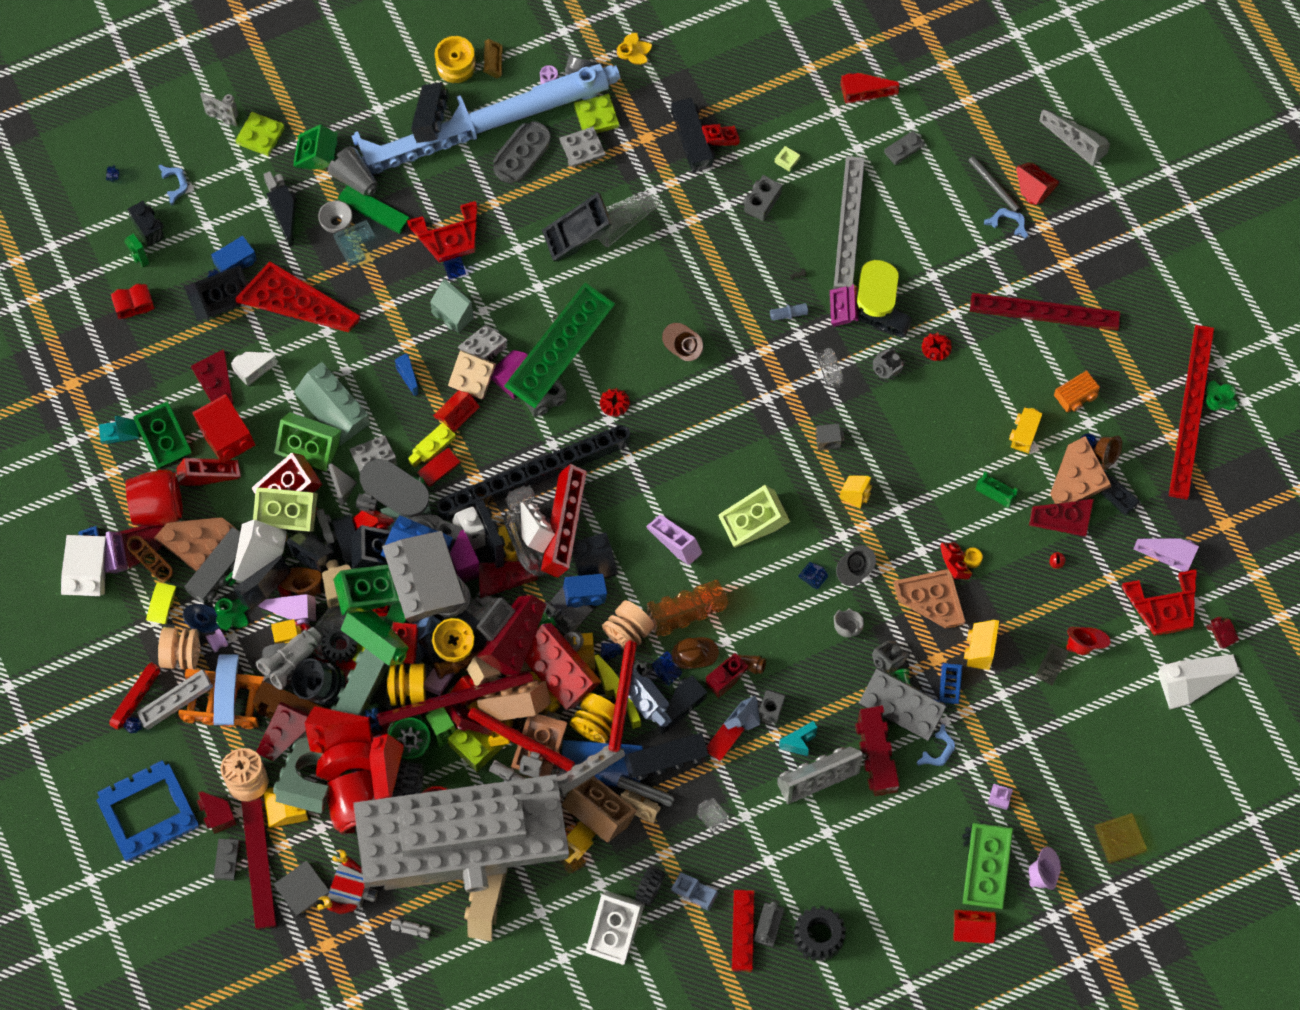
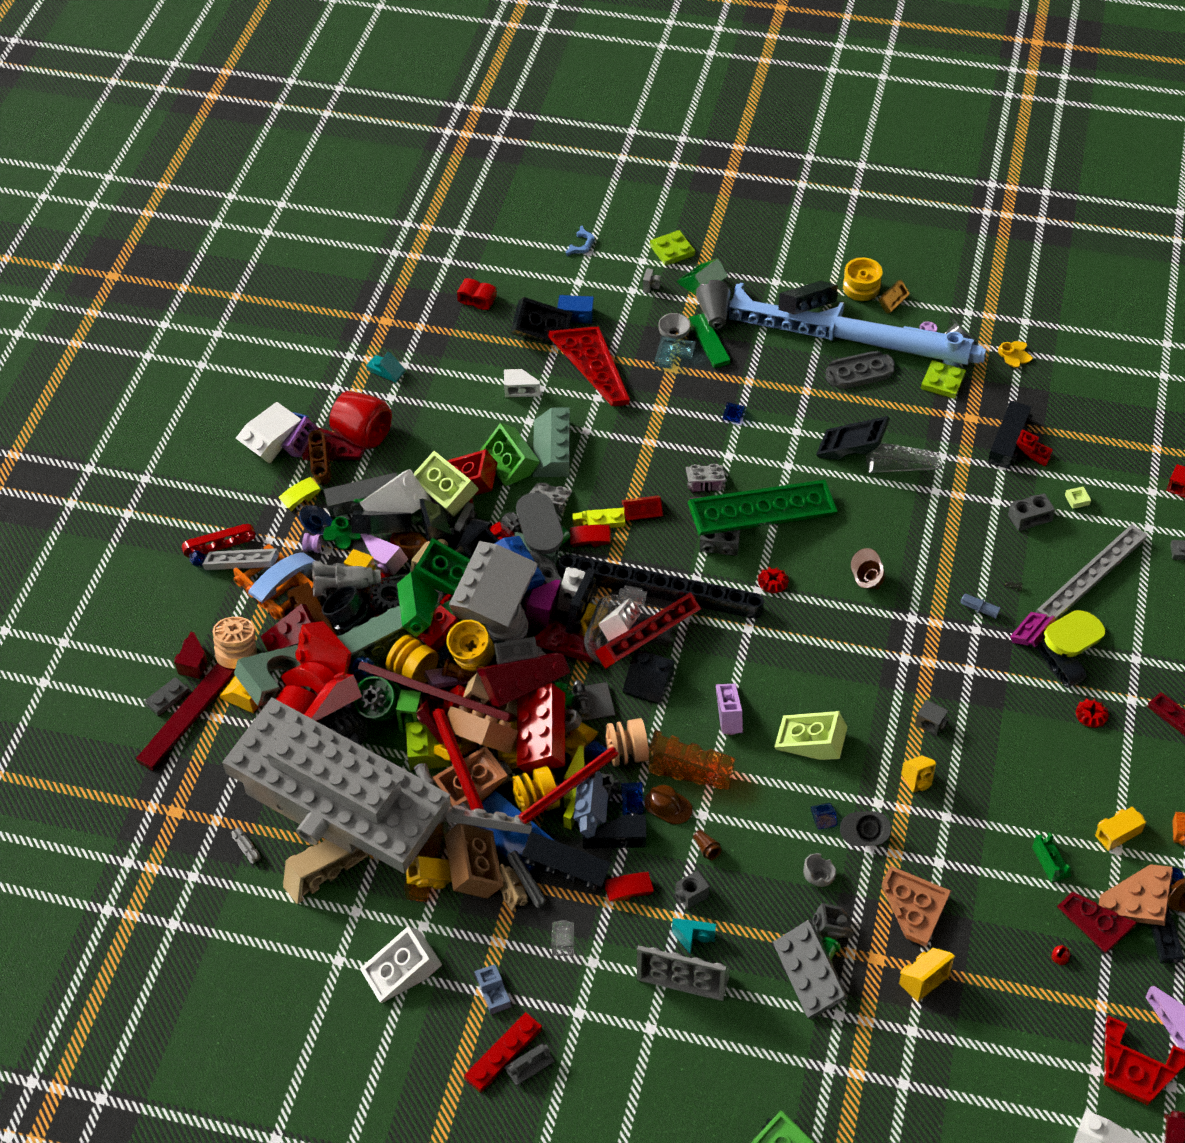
camera: 40 degrees right, 15 degrees down
(112, 173) = (543, 211): clear blue plate -> none
(137, 250) = (511, 260): green wing -> none
(145, 222) = (534, 252): black brick -> none
(158, 834) = (143, 645): blue hinge -> none
(162, 434) = (412, 385): green slope -> none
(175, 648) = (277, 526): light nougat wheel -> none
(193, 539) = (363, 463): nougat plate -> none
(206, 471) = (418, 429): red slope -> none
(213, 376) = (484, 377): dark red wing -> none
(223, 429) = (454, 405): red slope -> none
(224, 110) = (658, 212): light grey hinge -> none
(284, 209) = (640, 303): black slope -> none
(301, 888) = (197, 756): dark grey tile -> none
(342, 483) = (505, 500): light grey slope -> none
(347, 887) = (219, 785): torso -> none
(406, 371) = (630, 455): blue slope -> none
(449, 240) = (749, 392): red wing -> none
(451, 307) = (703, 433): slope -> none
(472, 374) = (676, 488): tan plate -> none
(531, 765) = (446, 782): light grey tile -> none
(582, 147) = (910, 391): light grey hinge -> none
(584, 590) = (619, 694): blue brick -> none
(650, 885) = (457, 952): black tyre -> none
(726, 675) = (675, 837): dark red slope -> none
(745, 714) = (664, 879): sand blue slope -> none
(822, 917) = (569, 1120): black tyre -> none
(831, 375) = (977, 667): clear hinge -> none
(877, 751) = (752, 990): dark red wedge -> none
(888, 364) = (1034, 695): dark grey hand -> none
(926, 759) = (813, 1042): medium blue helmet -> none
(950, 667) = (883, 973): blue slope -> none
(954, 558) = (961, 886): red slope -> none
(973, 557) = (981, 898): yellow tile -> none
(1000, 796) = (833, 1115): lavender tile -> none
(1052, 664) = (981, 1038): clear smoke slope -> none
(1086, 639) = (1028, 1037): red piece -> none

